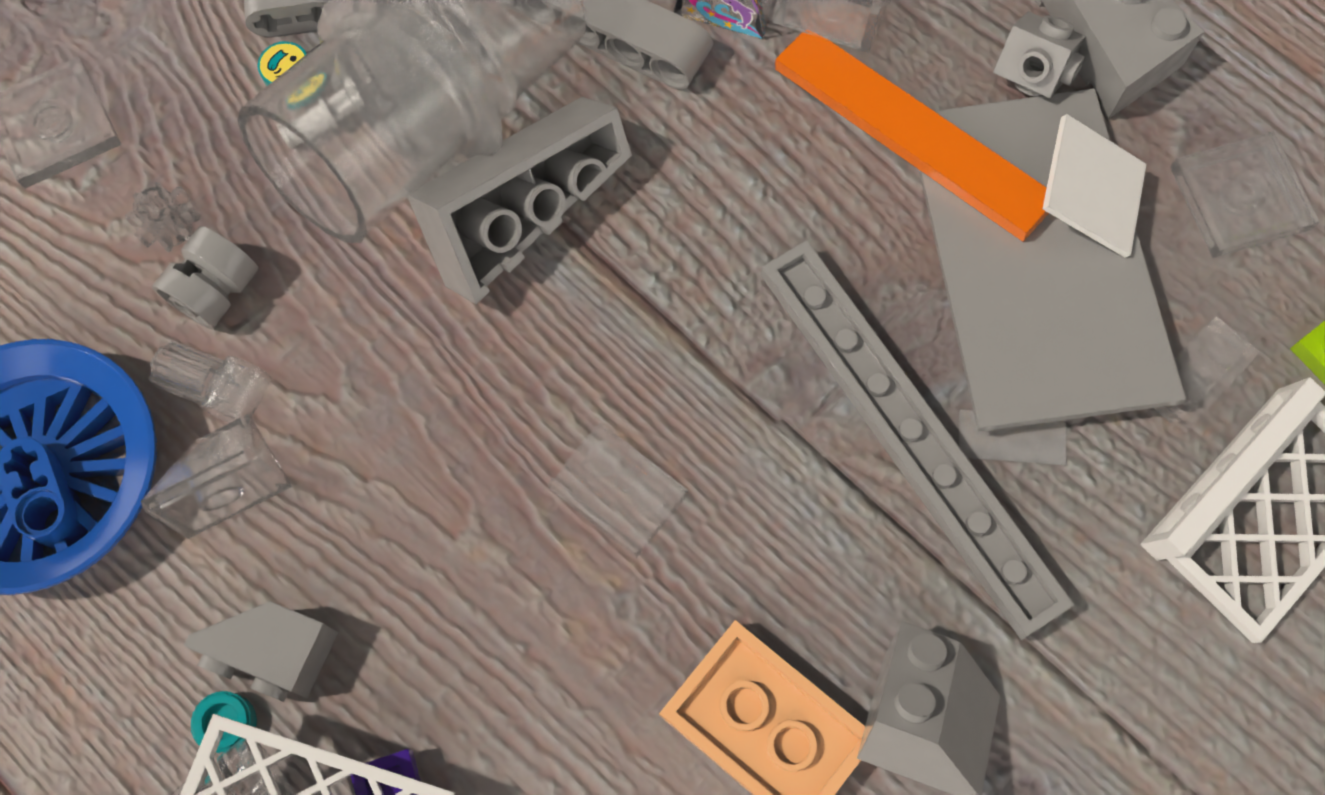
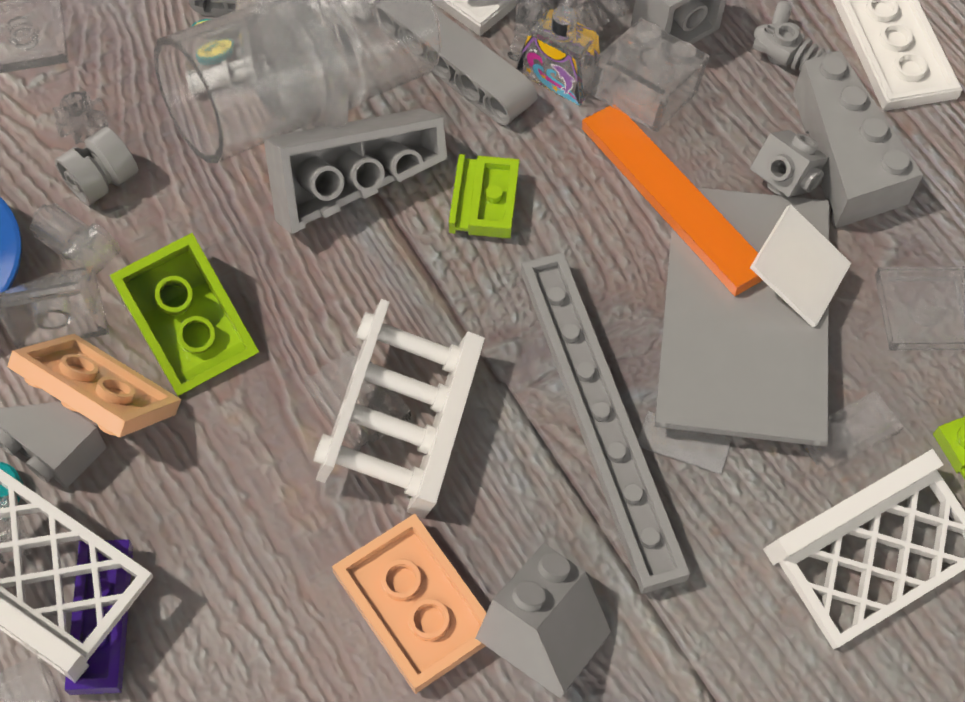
camera: 10 degrees right, 10 degrees down
(300, 566) = (94, 384): none -> light nougat plate
(379, 443) = (184, 314): none -> lime slope
(689, 190) = (484, 196): none -> lime plate
(730, 521) = (434, 441): none -> white fence

